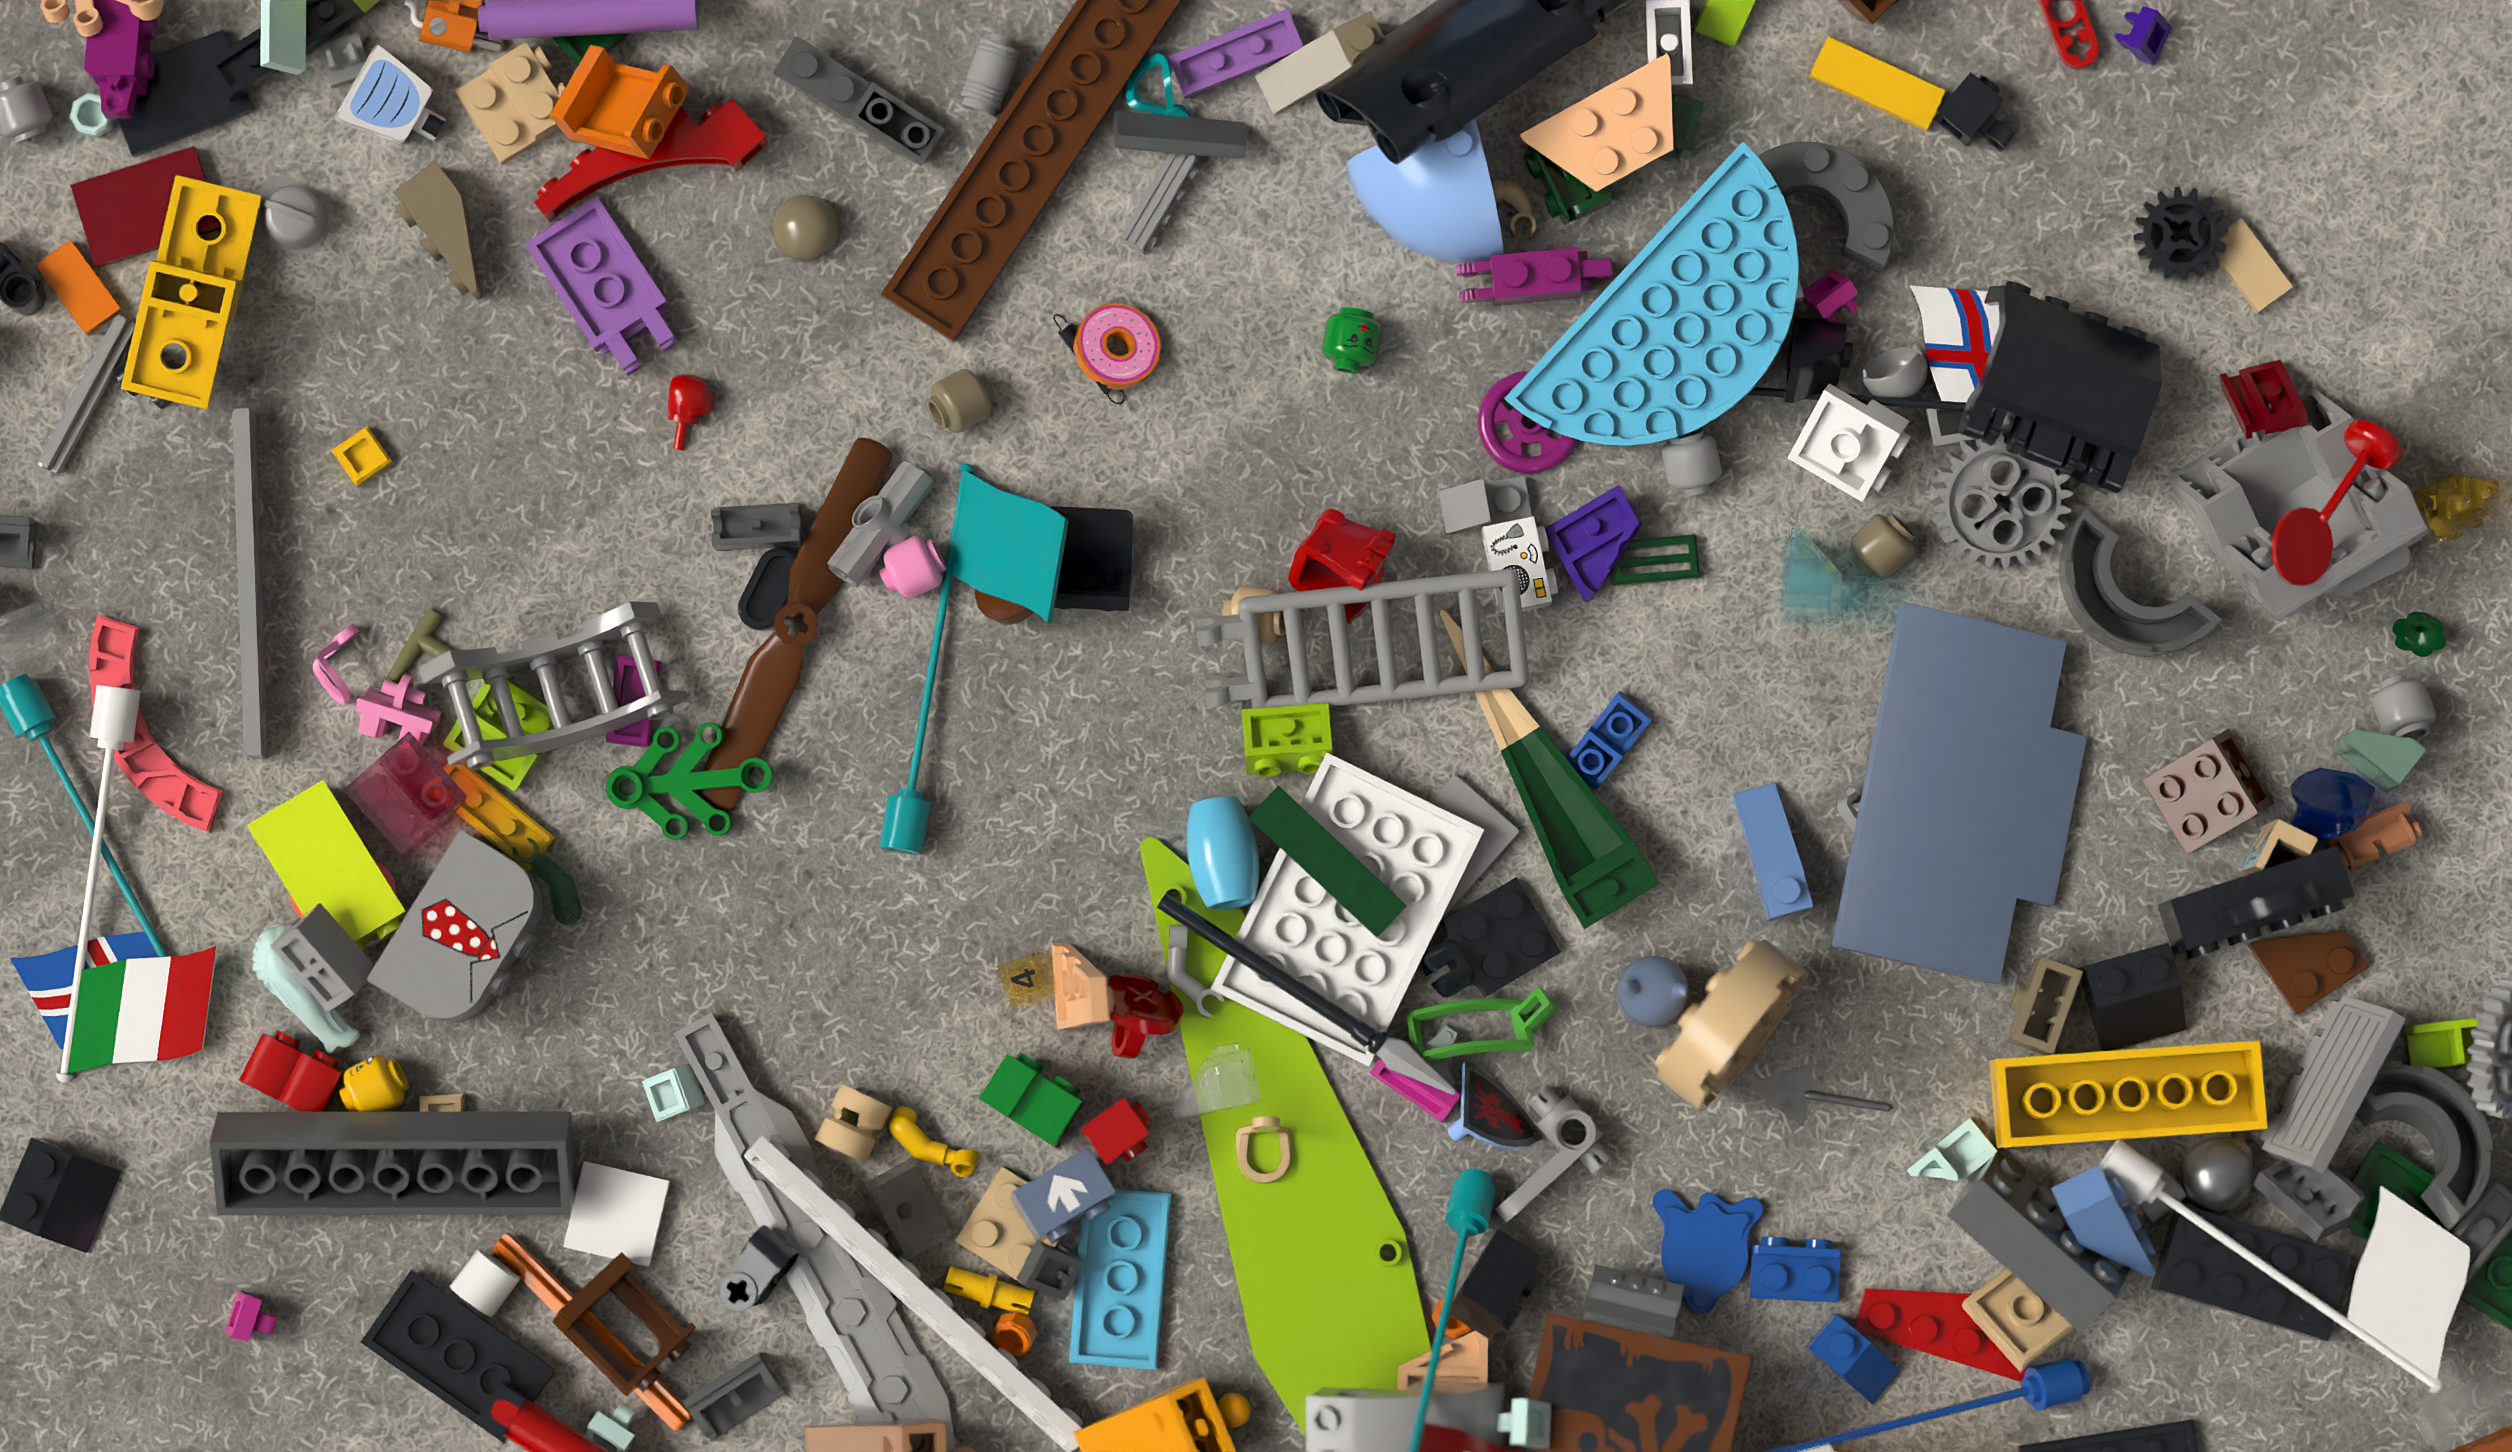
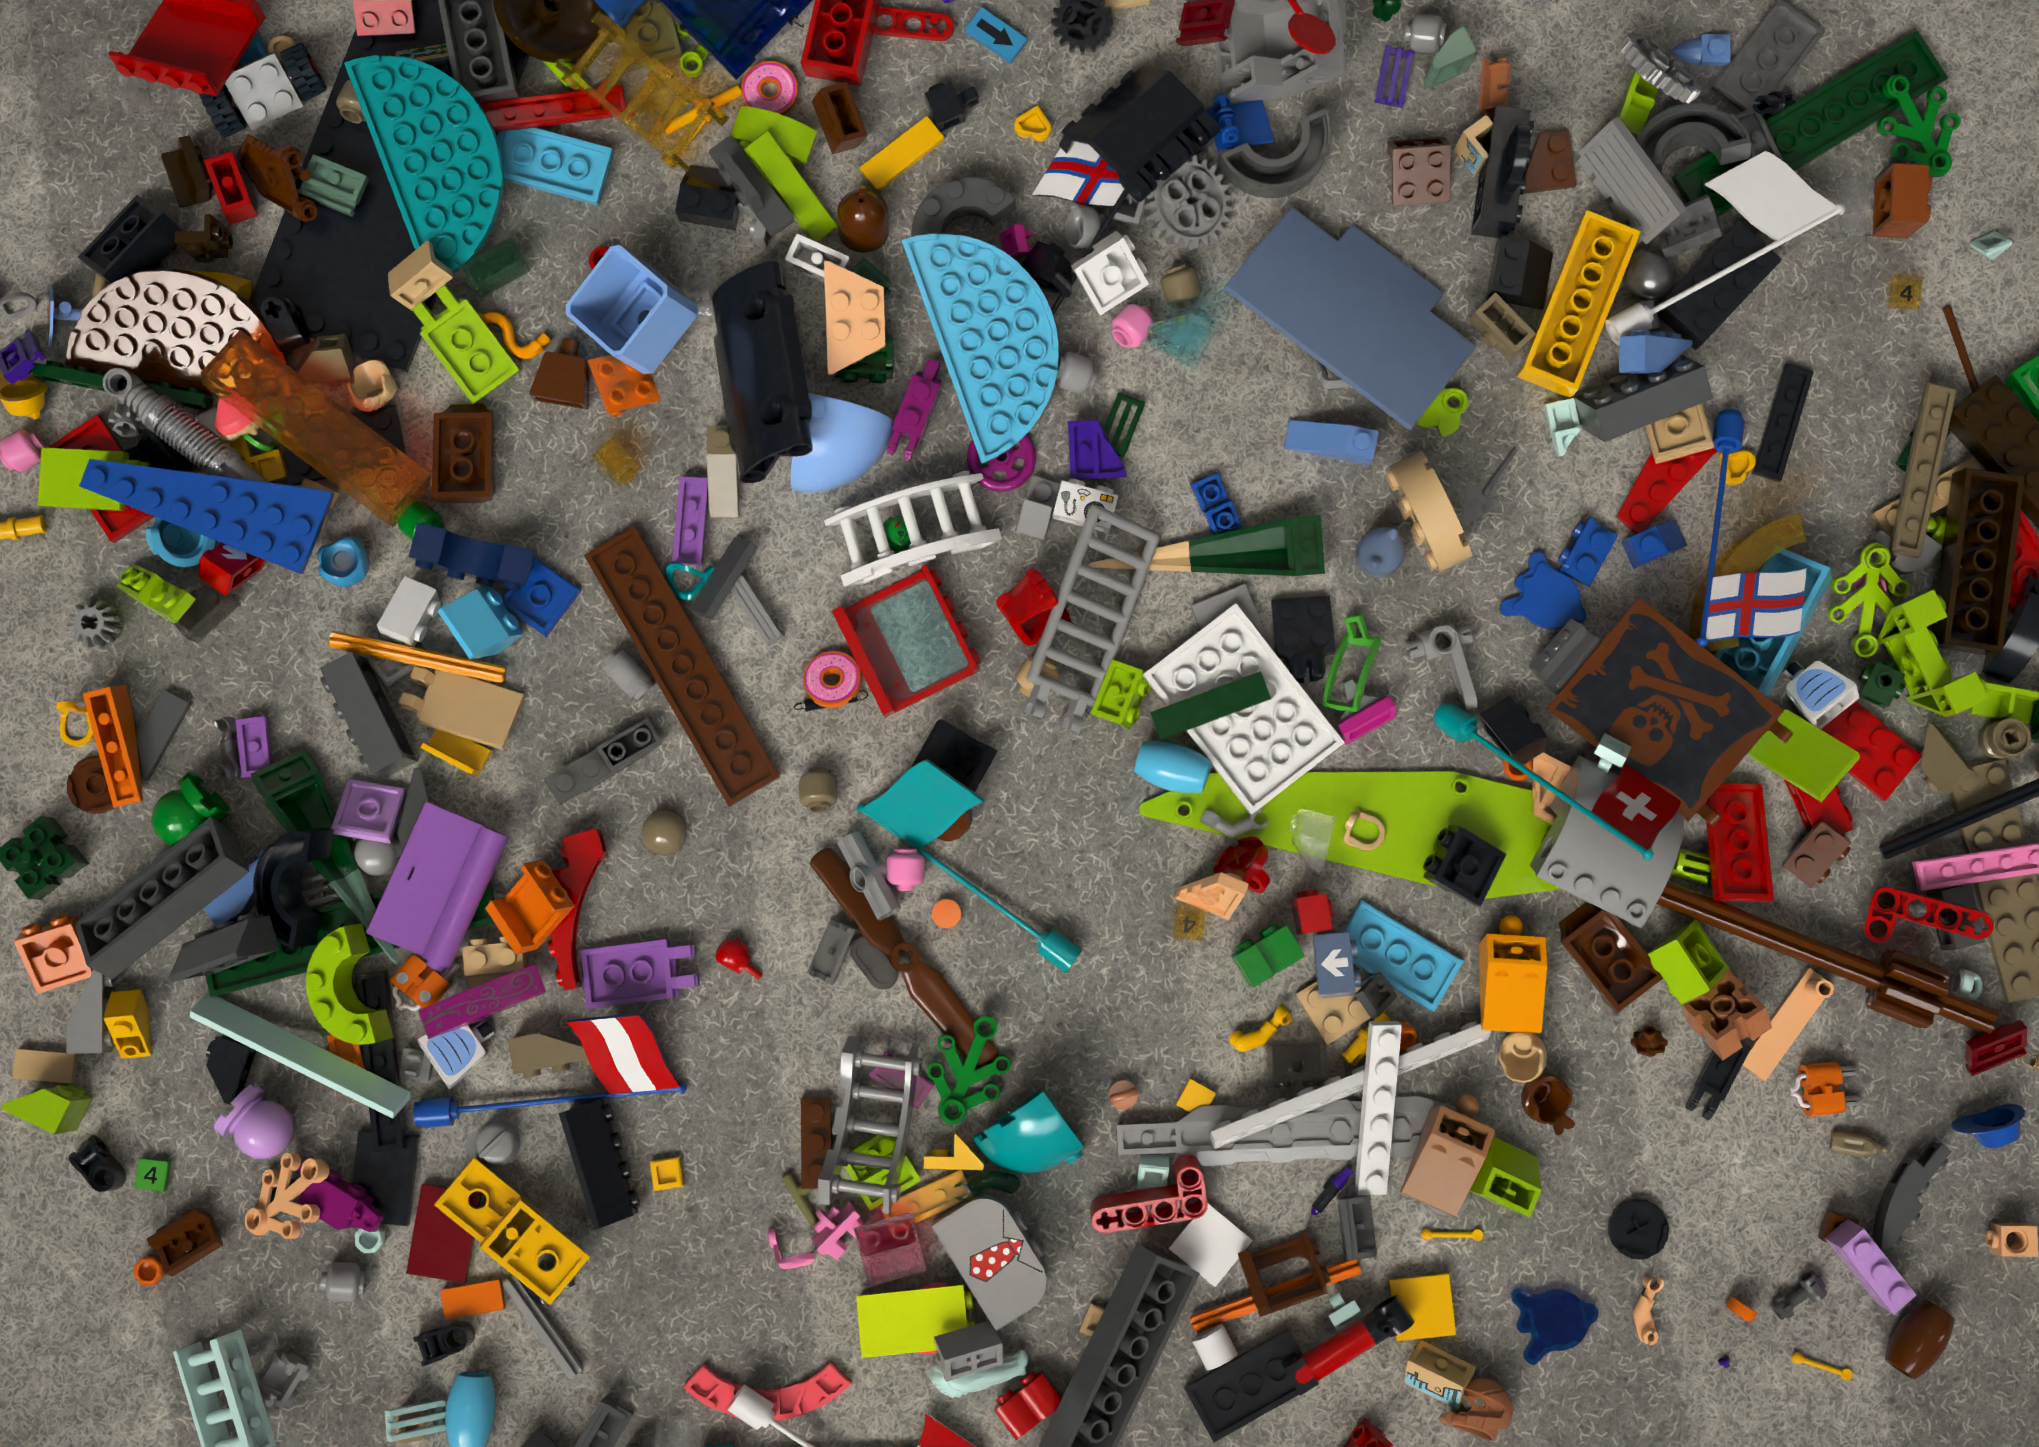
camera: 60 degrees left, 0 degrees up
(250, 583) = (711, 1282): light grey tile -> none
(333, 361) = (599, 1163): none -> black slope
(374, 1085) = (1060, 1356): yellow head -> none
(467, 103) = (481, 1001): none -> magenta slope
(487, 315) = (620, 1054): none -> flag
(503, 624) = (815, 1138): none -> reddish brown plate
(570, 831) = (963, 1159): none -> yellow slope
(634, 1100) = (1149, 1198): none -> red beam
(641, 907) = (1030, 1137): none -> teal brick
(756, 1002) = (1123, 1094): none -> nougat tile
(762, 1266) = (1287, 1172): piece -> none
(767, 1339) = (1331, 1189): none -> piece
(801, 1098) = (1194, 1096): none -> yellow tile
(846, 1138) = (1233, 1080): tan wheel -> none
(881, 652) = (946, 913): none -> orange tile
(902, 1343) = (1377, 1107): none -> white plate
(1216, 419) = (907, 641): none -> clear light blue panel
(1282, 1303) = (1463, 864): none -> black plate
(1343, 373) = (918, 550): none -> white fence
(1395, 1053) = (1346, 722): black piece -> none
(1491, 1113) = (1407, 684): shield -> none
(1515, 196) = (864, 397): tan arm -> none
(1748, 81) = (863, 220): none -> reddish brown helmet
(1795, 505) = (1131, 325): none -> bright pink head
(1885, 985) = (1443, 415): none -> lime plate
(2007, 239) = (1033, 124): none -> yellow tile
(2016, 1420) = (1738, 465): none -> yellow tile
(2105, 128) = (996, 35): none -> dark azure tile
(2147, 515) = (1240, 123): none -> blue hinge
(2330, 802) = (1462, 101): clear blue hat -> none
(2359, 684) = (1398, 53): none -> dark purple tile

